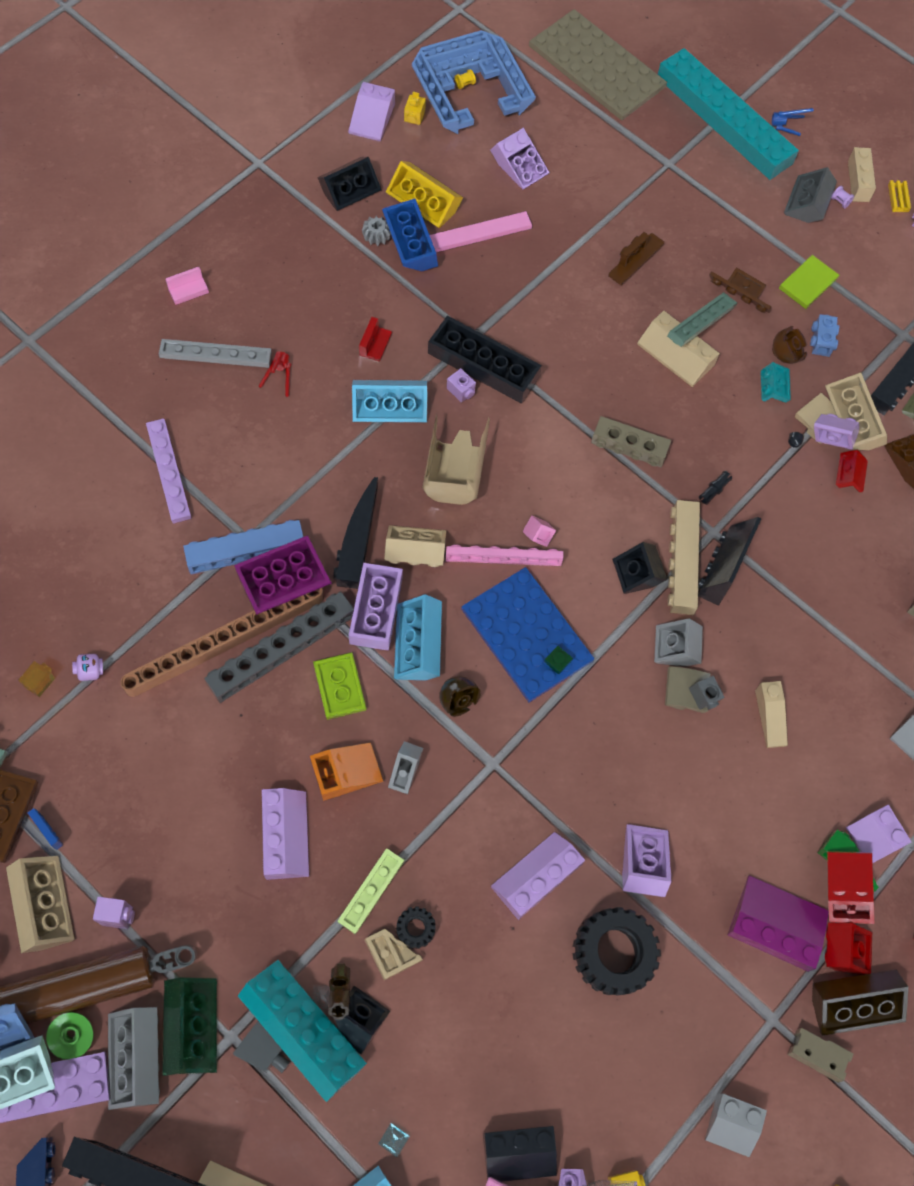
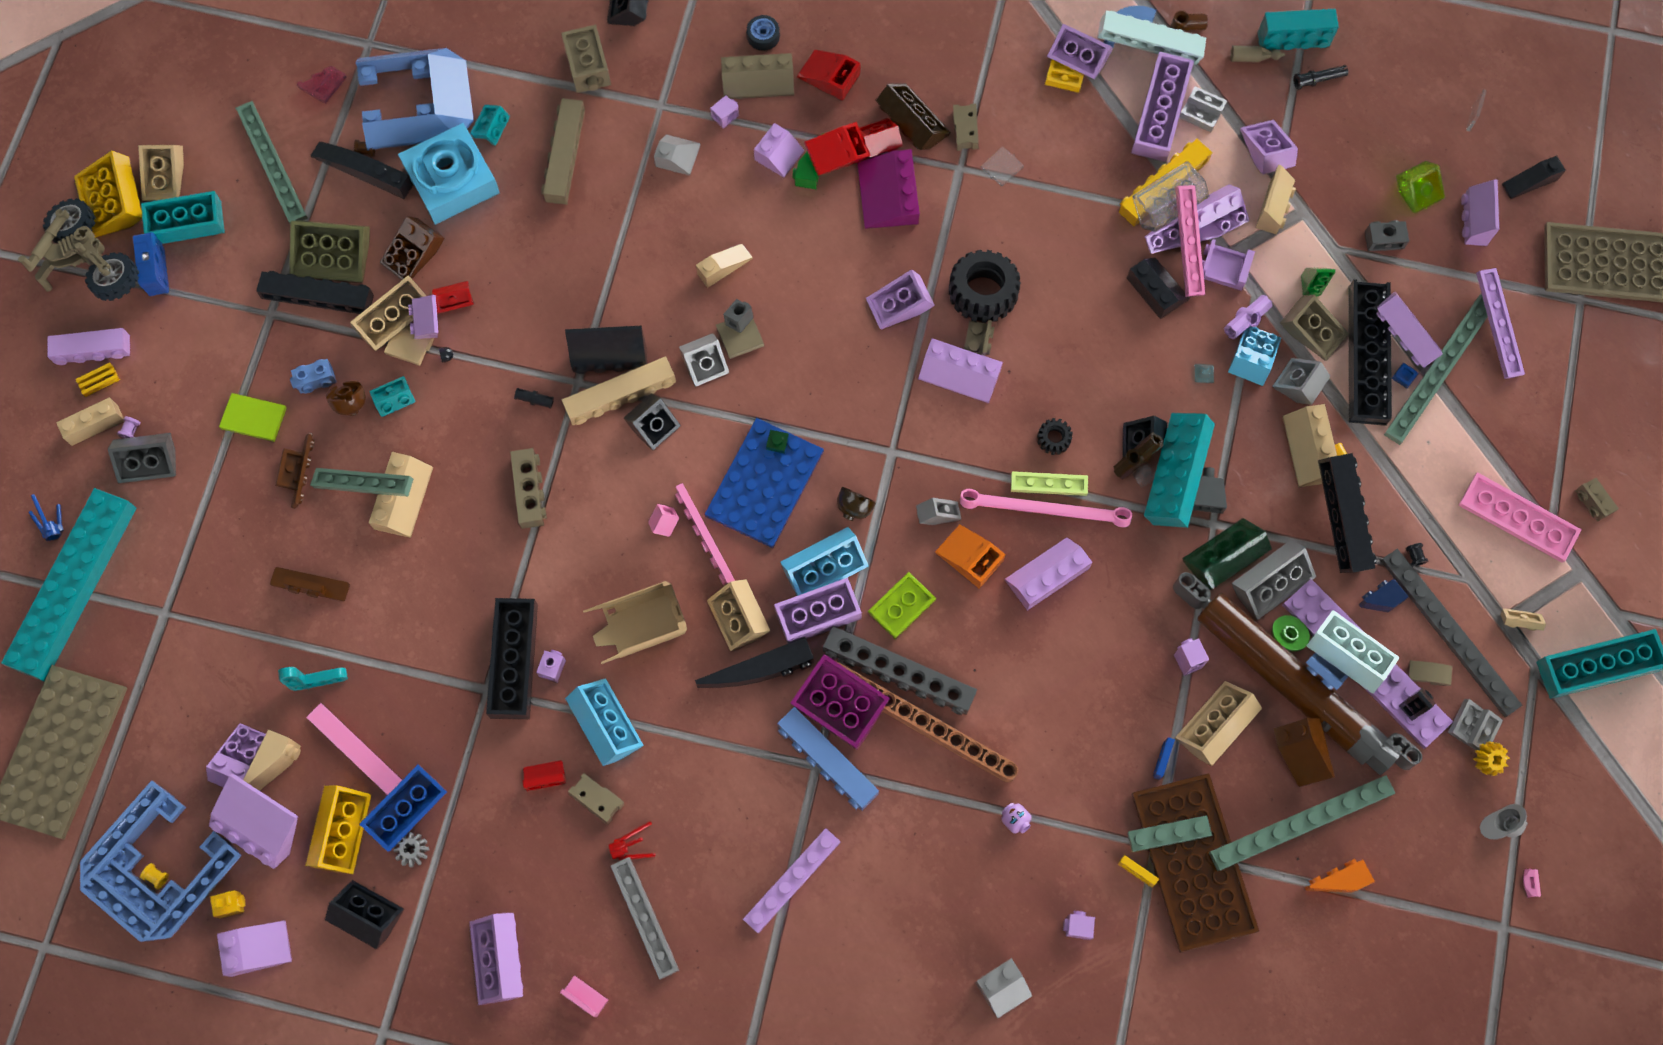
camera: 115 degrees left, 5 degrees up
(37, 678) = (1052, 854): clear yellow brick -> none
(256, 246) = (496, 958): none -> lavender slope
(331, 364) = (596, 798): none -> dark tan piece
(346, 873) = (1046, 508): none -> bright pink piece
(390, 954) = (1085, 443): tan wing -> none
(459, 138) = (254, 822): none -> lavender slope
(505, 171) = (271, 759): none -> tan slope
(555, 221) = (296, 680): none -> teal beam
(562, 914) = (978, 337): none -> dark tan bracket
(735, 1124) = (1047, 160): light grey slope -> none
(753, 1068) = (1002, 166): none -> clear piece

